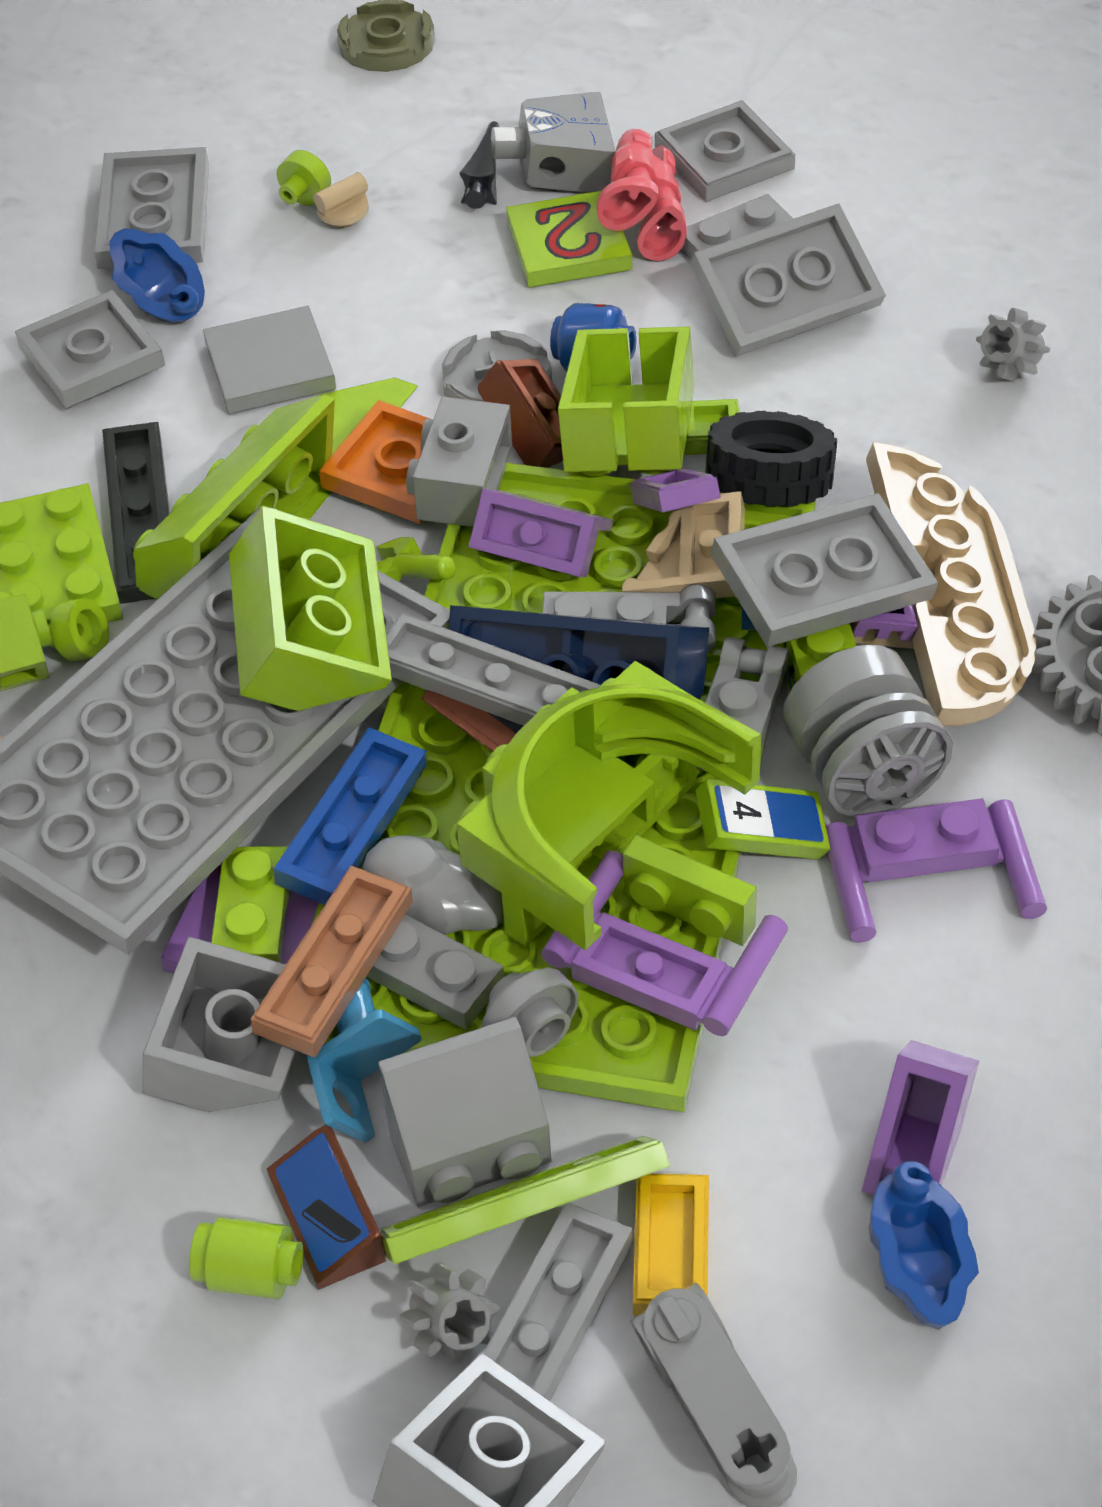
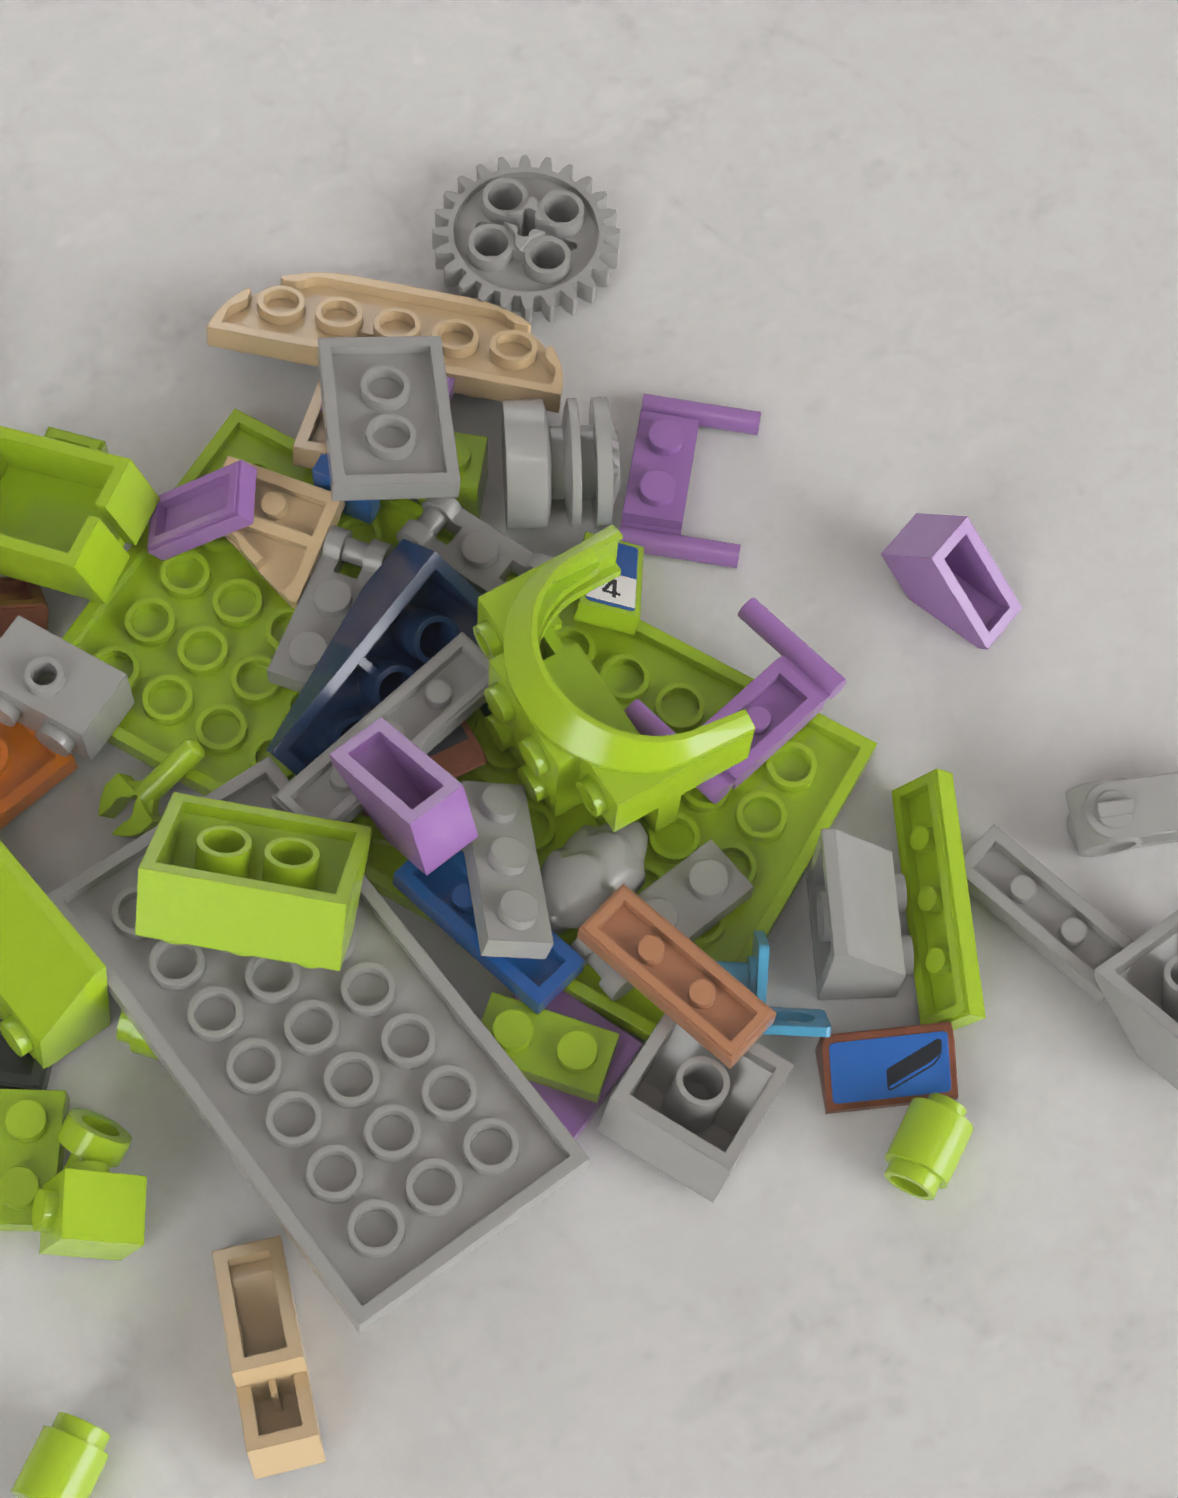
camera: 80 degrees left, 15 degrees up
(391, 802) = (506, 874): none -> light grey plate
(425, 691) = (406, 795): none -> medium lavender slope
(449, 1312) = (1034, 989): light grey gear -> none
(536, 531) = (180, 648): medium lavender panel -> none
(540, 1001) = (786, 828): light grey plate -> none
(670, 1235) = (1015, 805): yellow tile -> none
(689, 890) = (706, 647): lime plate -> none
(772, 457) = (153, 390): black tyre -> none
(922, 1244) = (1065, 619): blue arm -> none
(1012, 344) = (94, 161): light grey gear -> none

